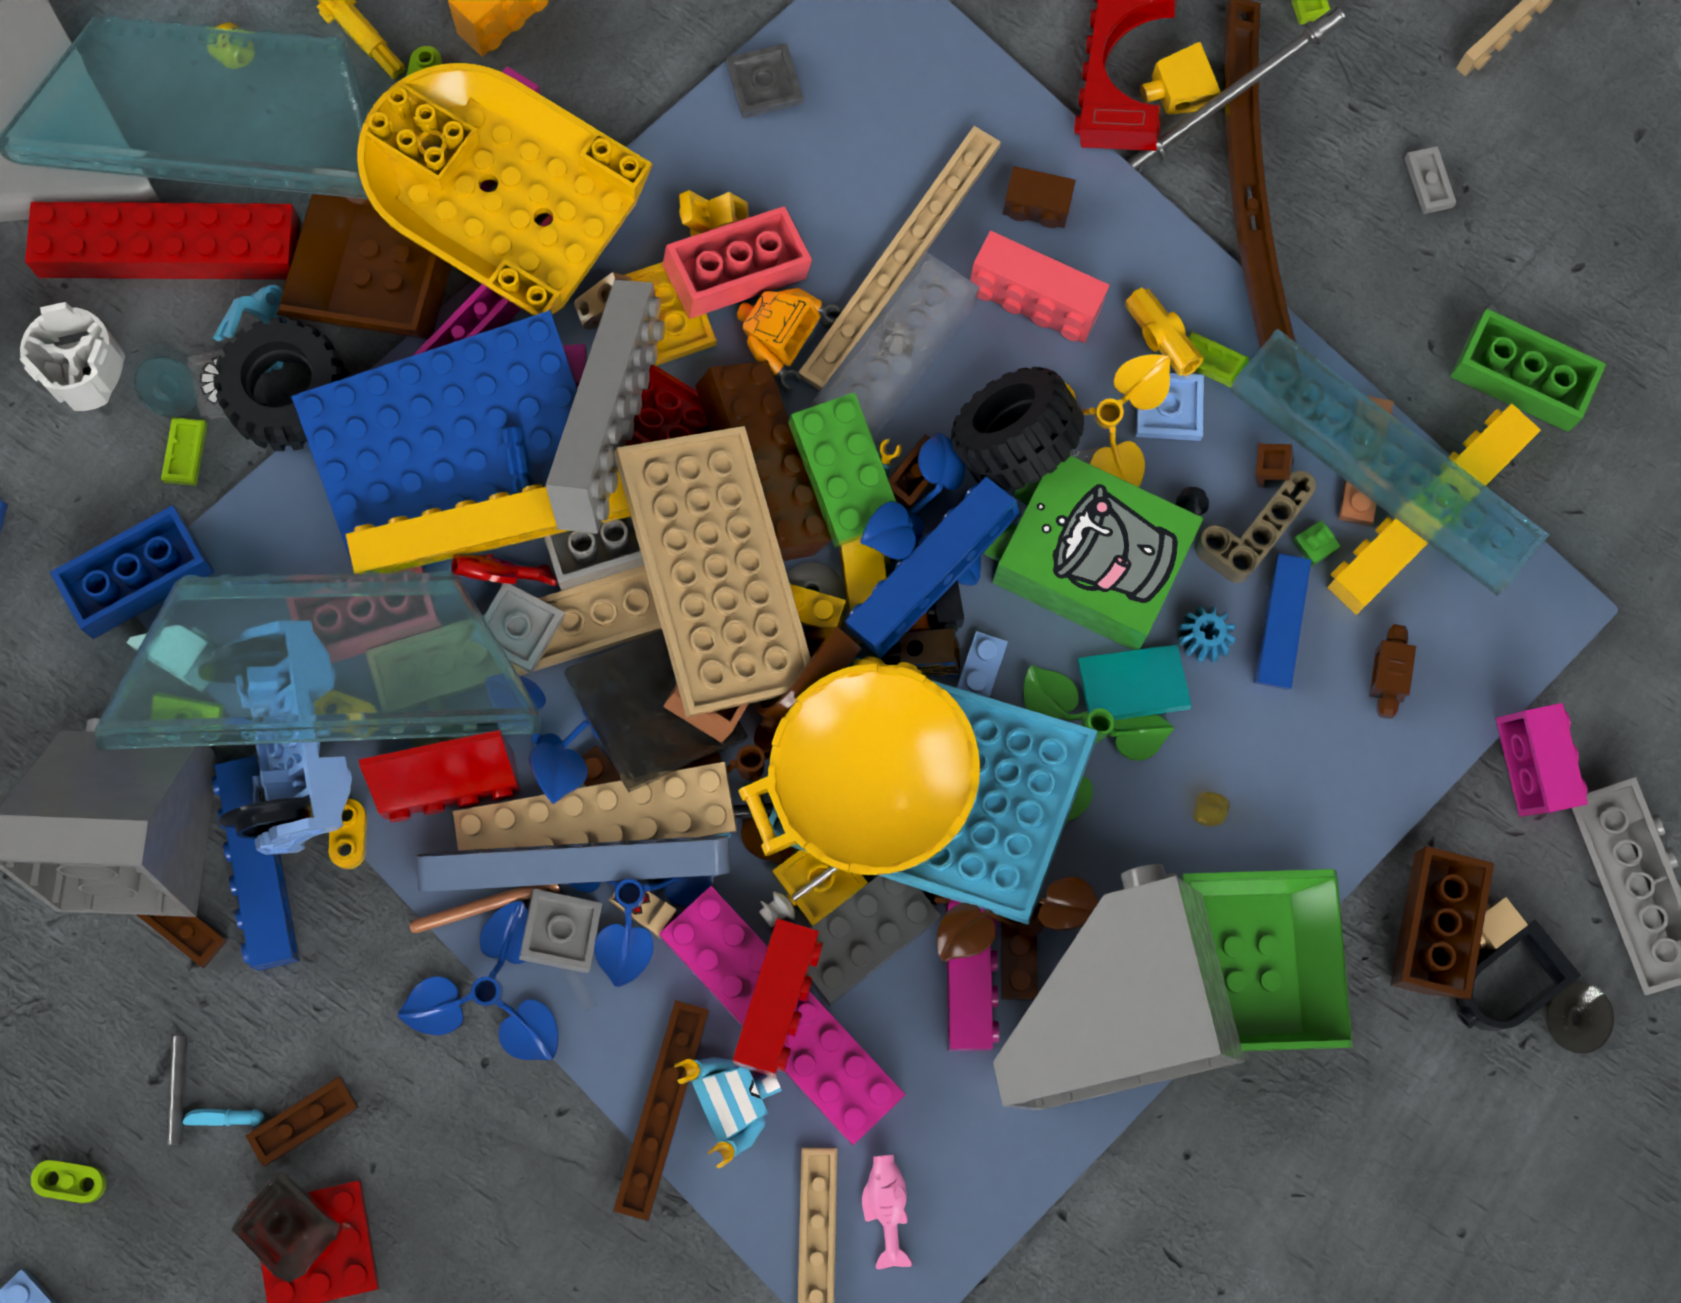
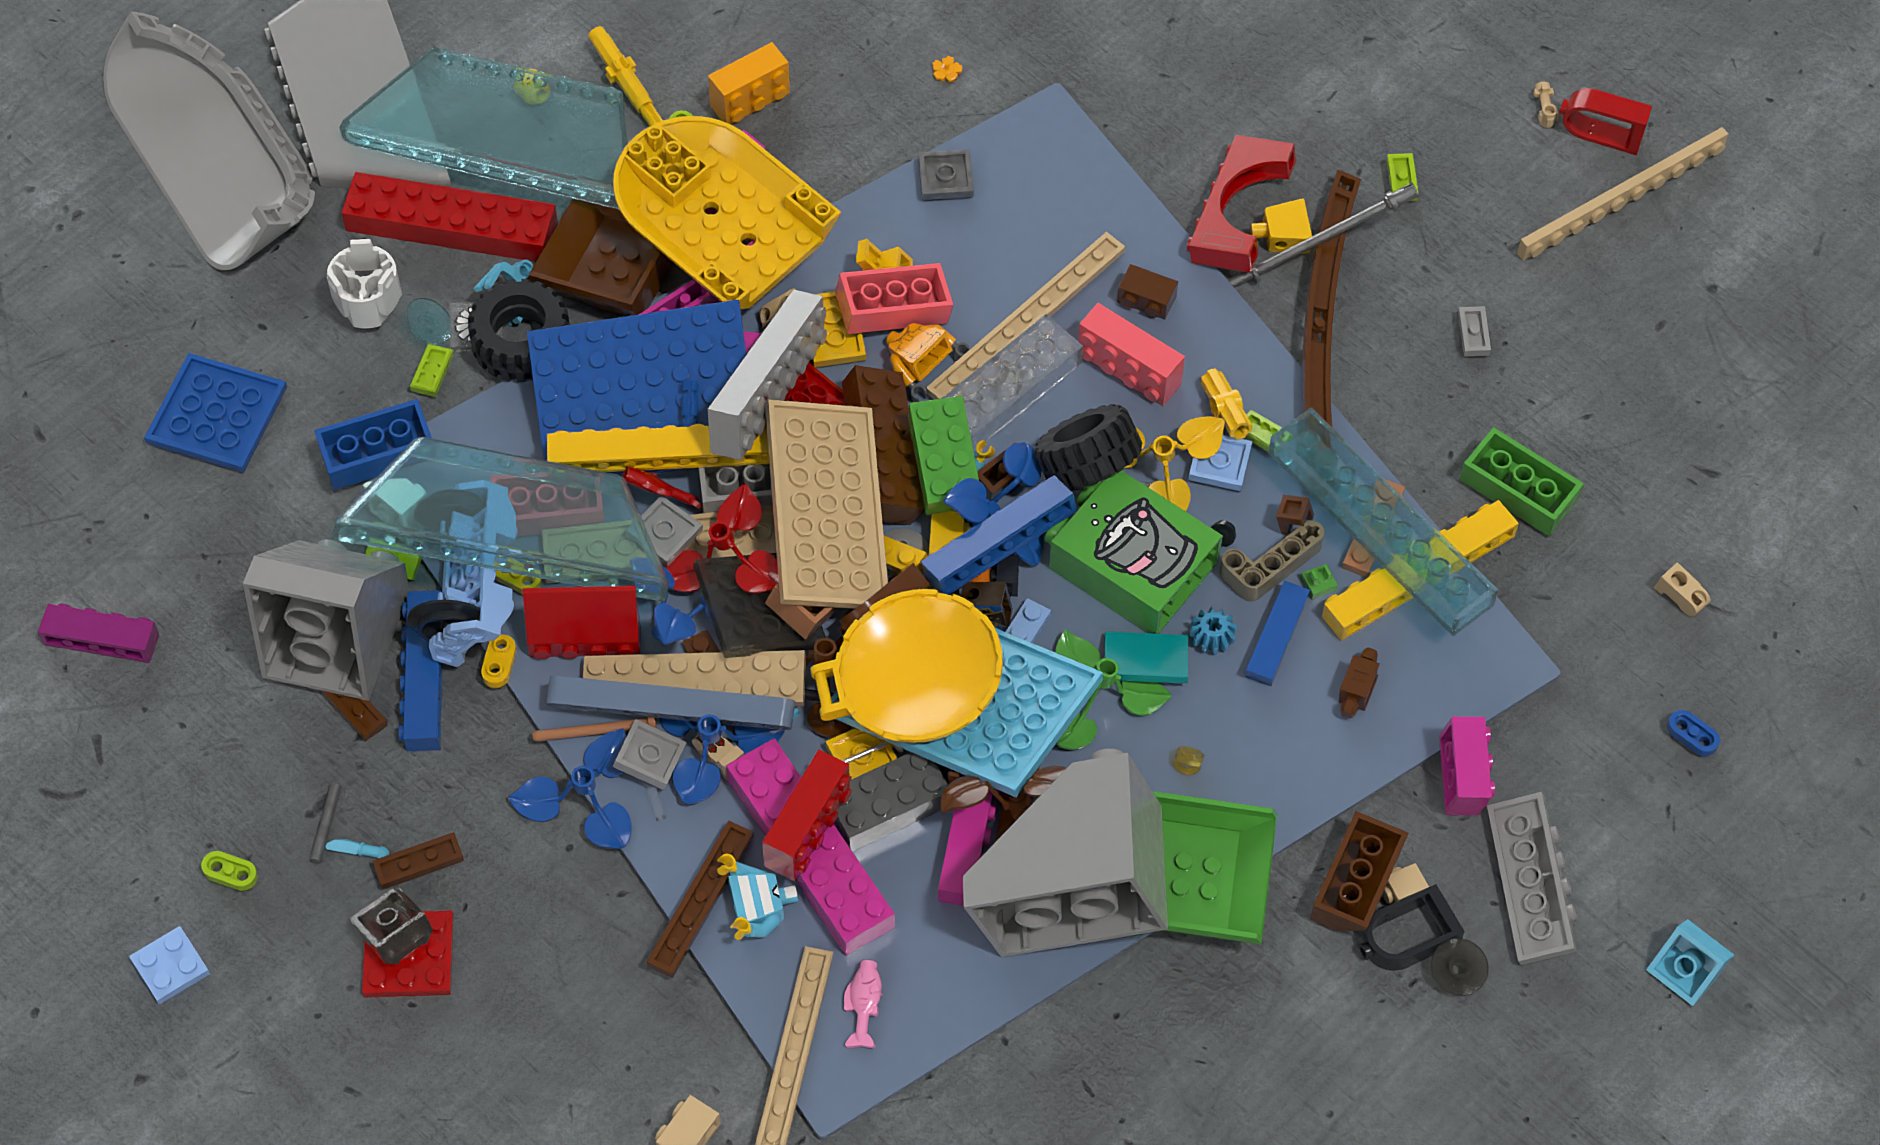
camera: 15 degrees right, 15 degrees down
(605, 590) = (740, 512): none -> red plant

